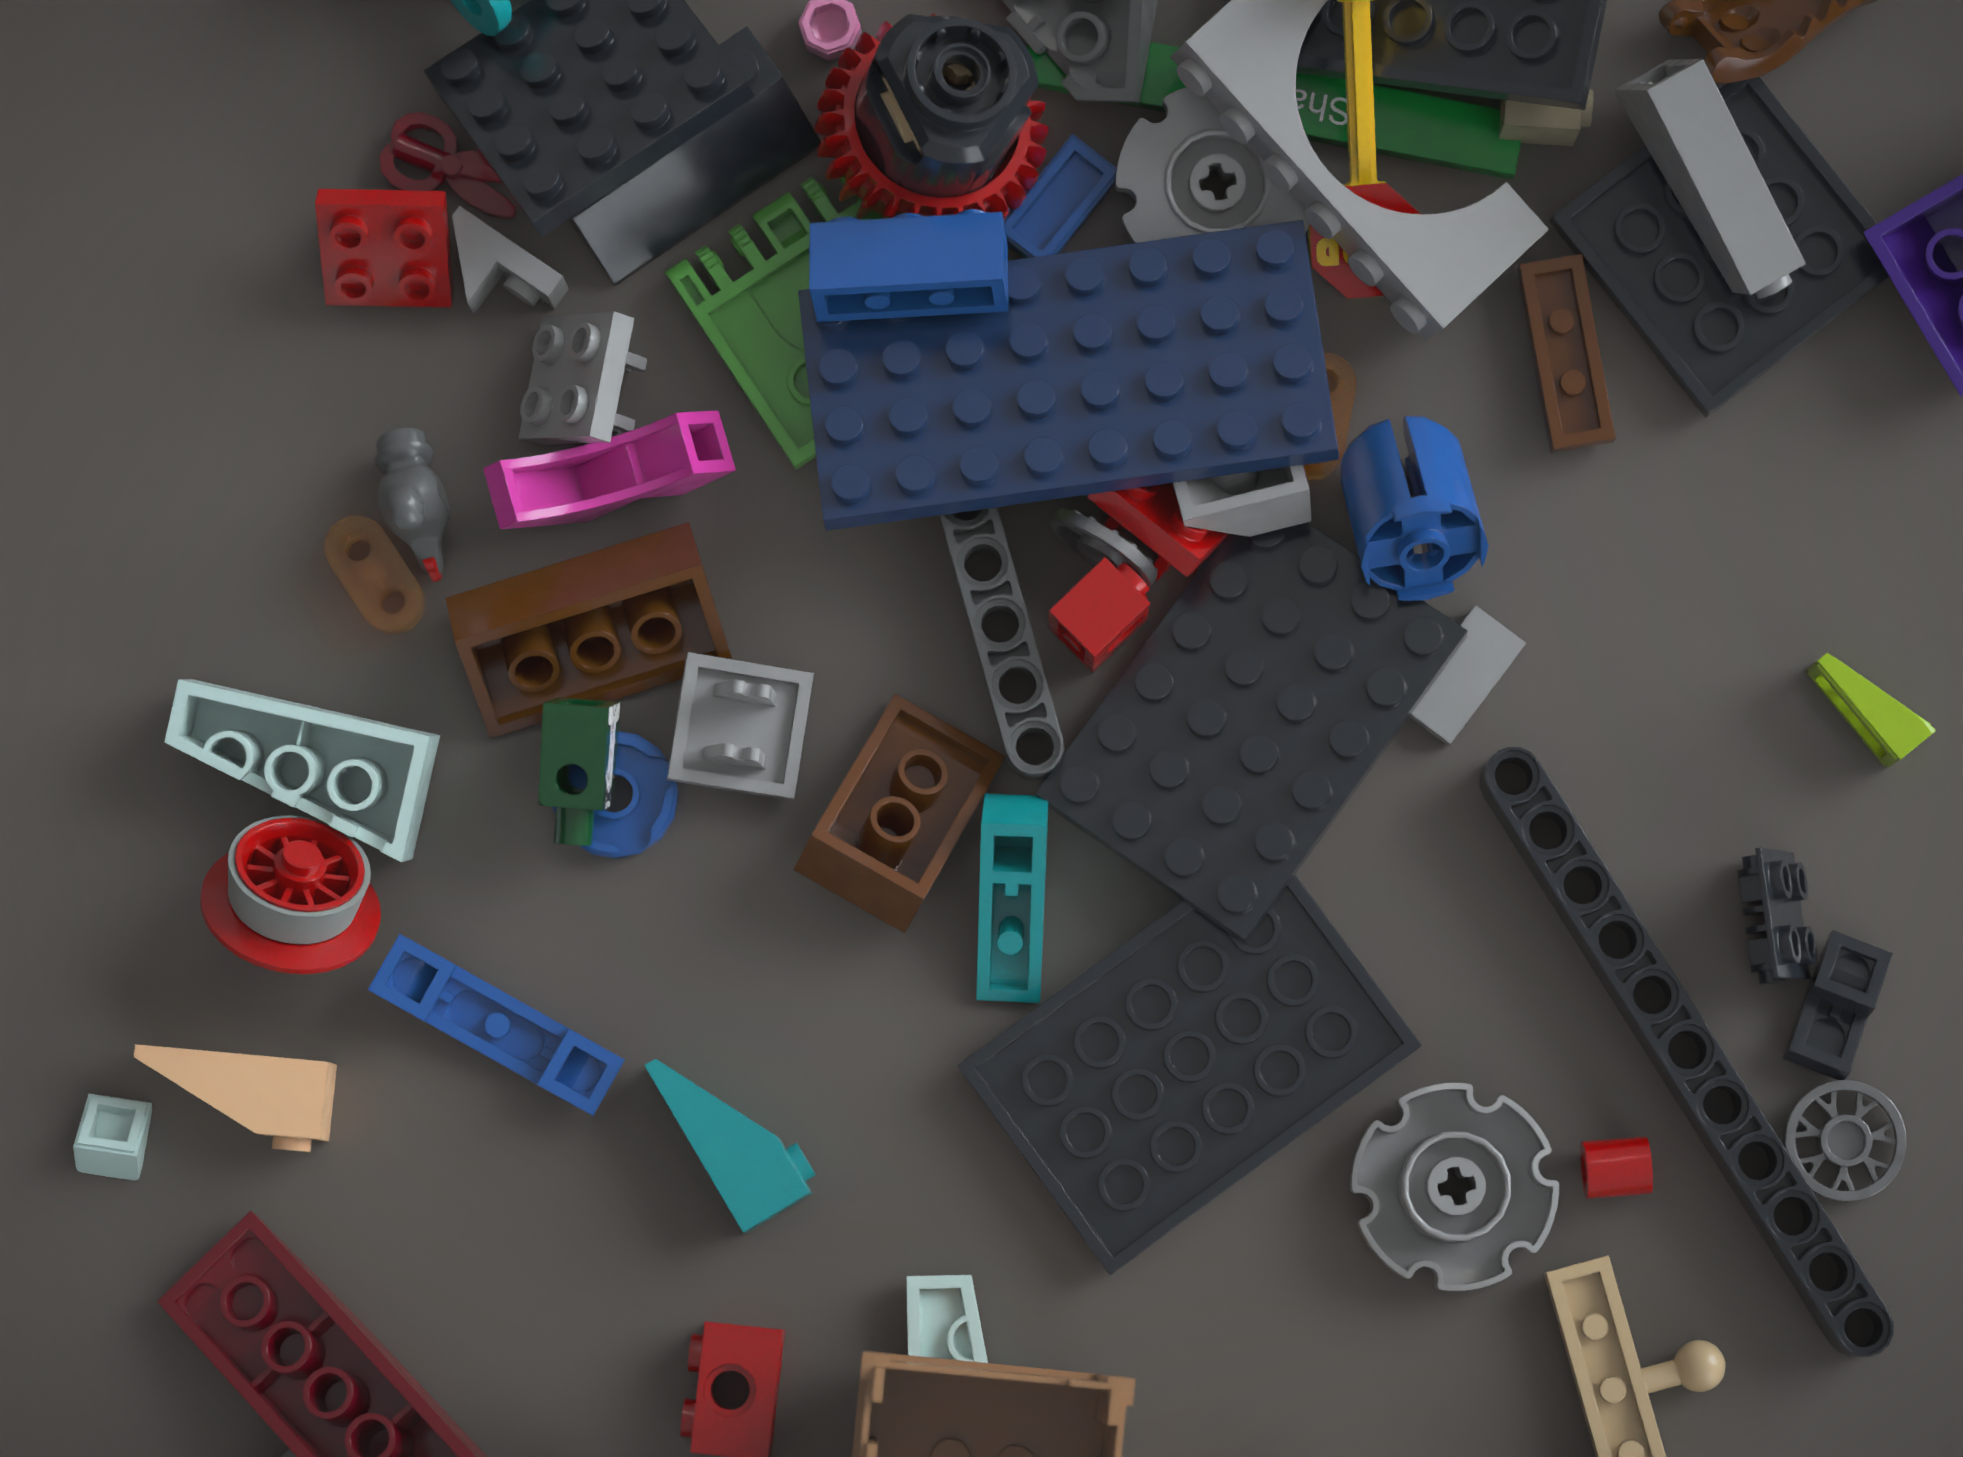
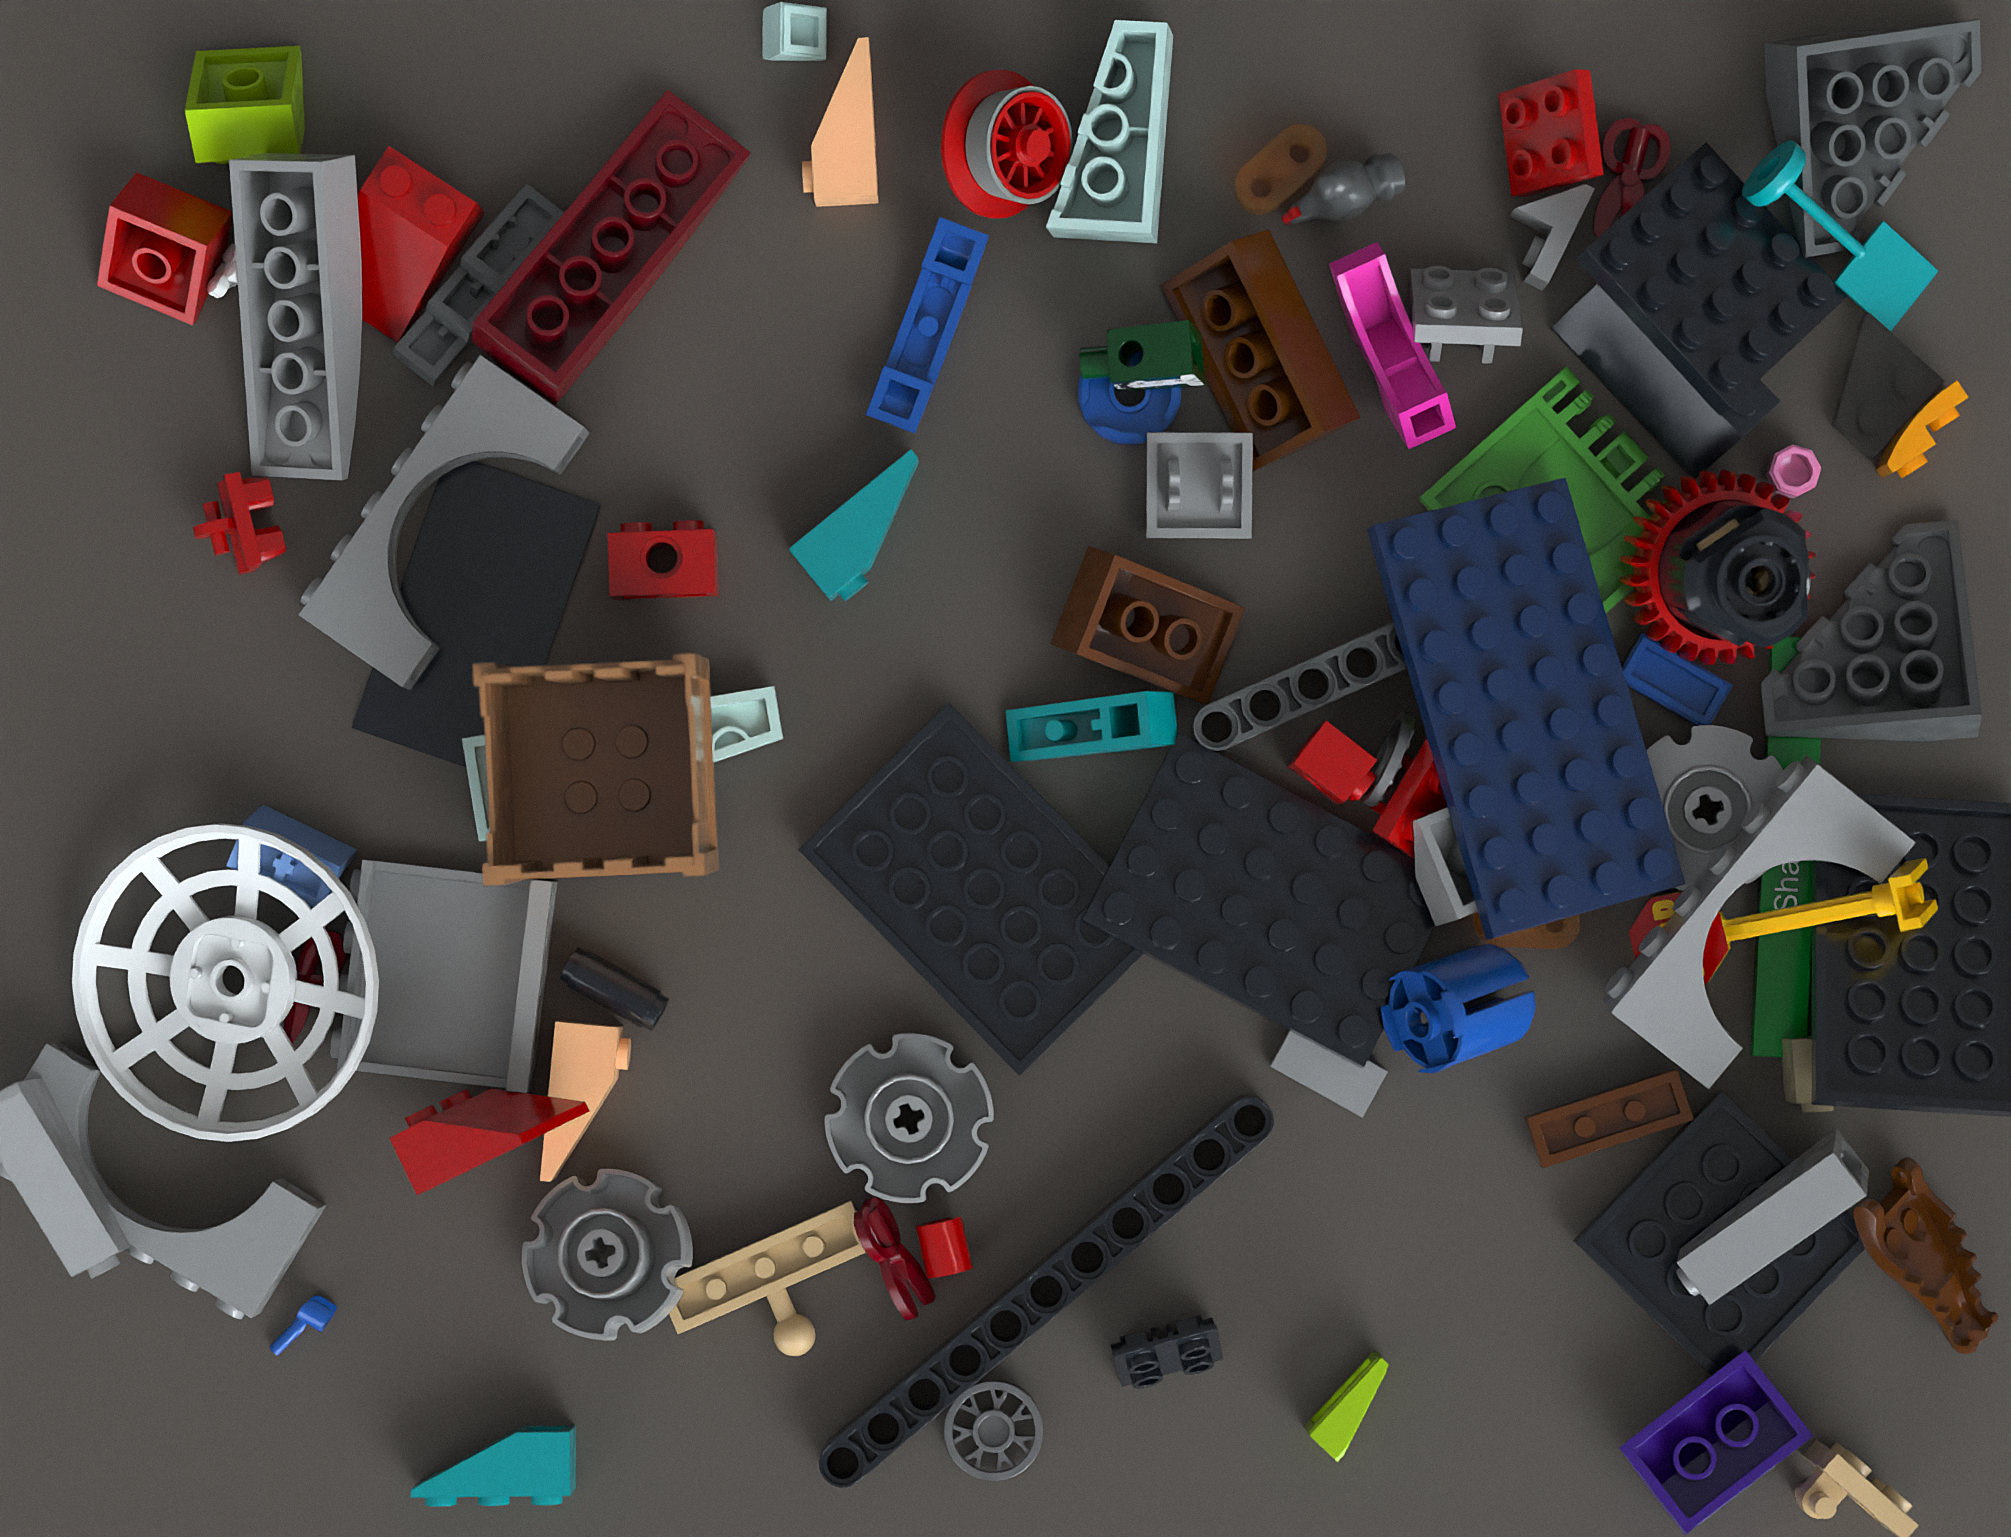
camera: 80 degrees right, 5 degrees up
(908, 266) = (1596, 564): blue brick -> none
(1600, 1242) = (881, 1241): none -> dark red piece
(1837, 1005) = (1102, 1410): black slope -> none

